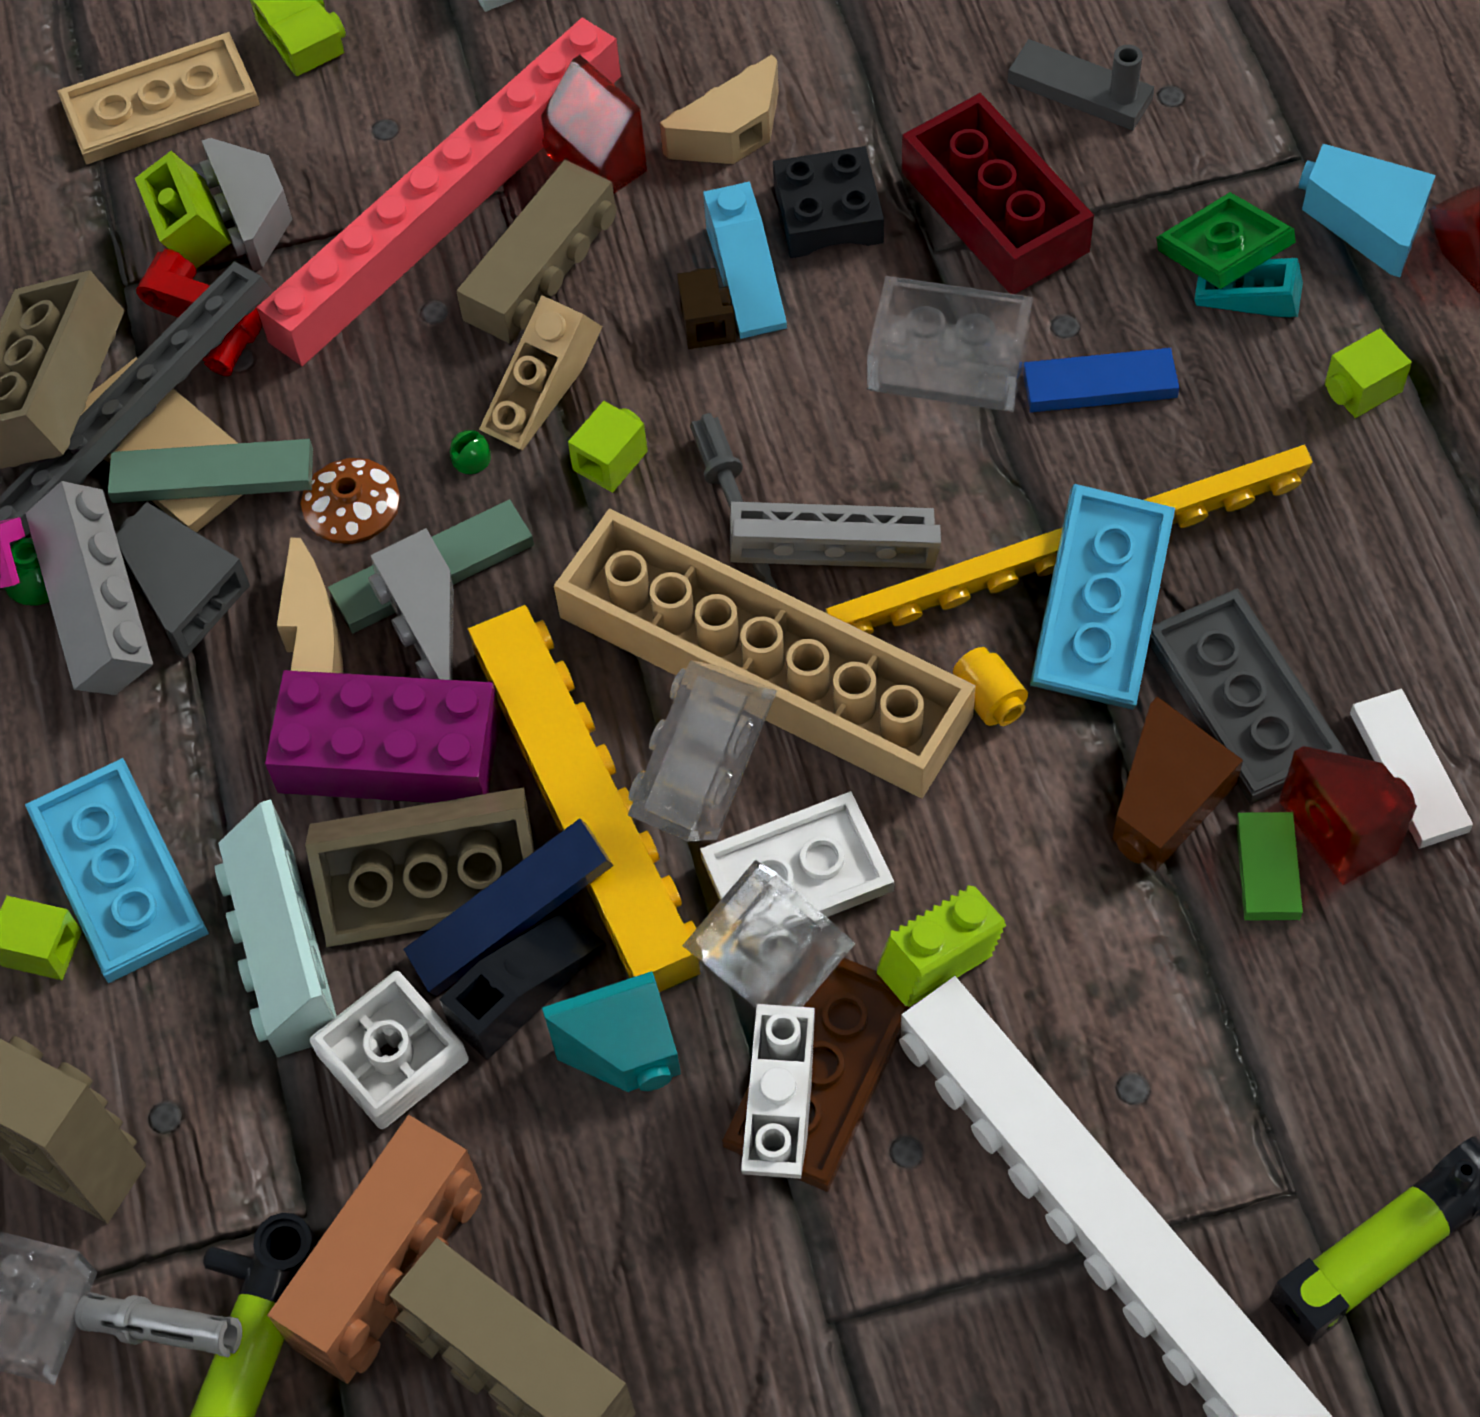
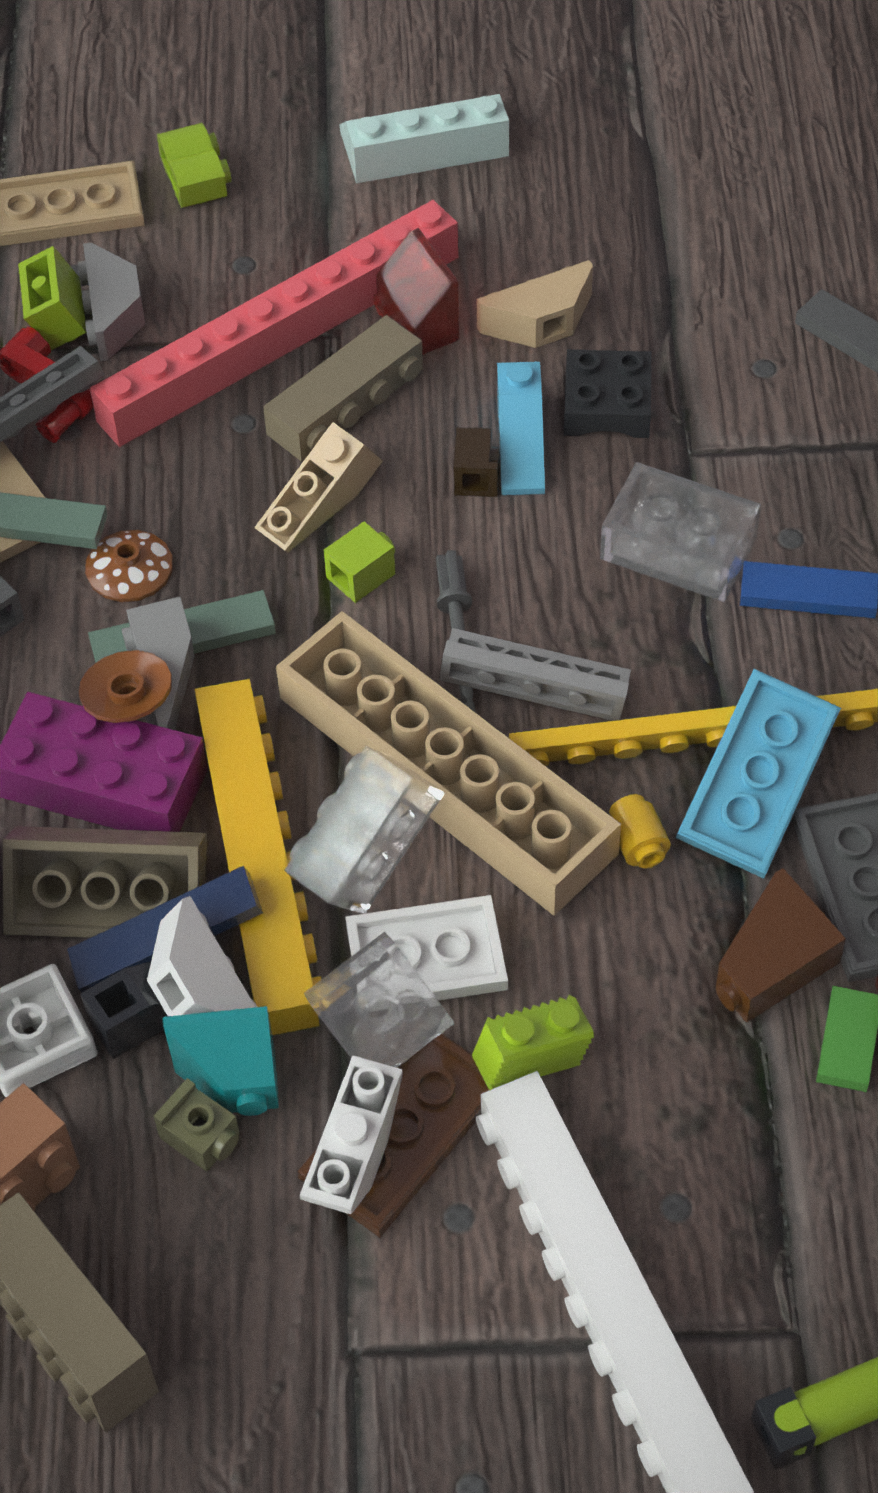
camera: 10 degrees right, 5 degrees down
(307, 616) = (63, 650): tan slope -> none
(393, 642) = (125, 686): none -> dark orange dish
(474, 452) = (241, 544): green hinge -> none
(554, 946) = (191, 969): none -> white slope
(605, 1135) = (200, 1144): none -> olive brick
(996, 193) = (756, 413): dark red brick -> none

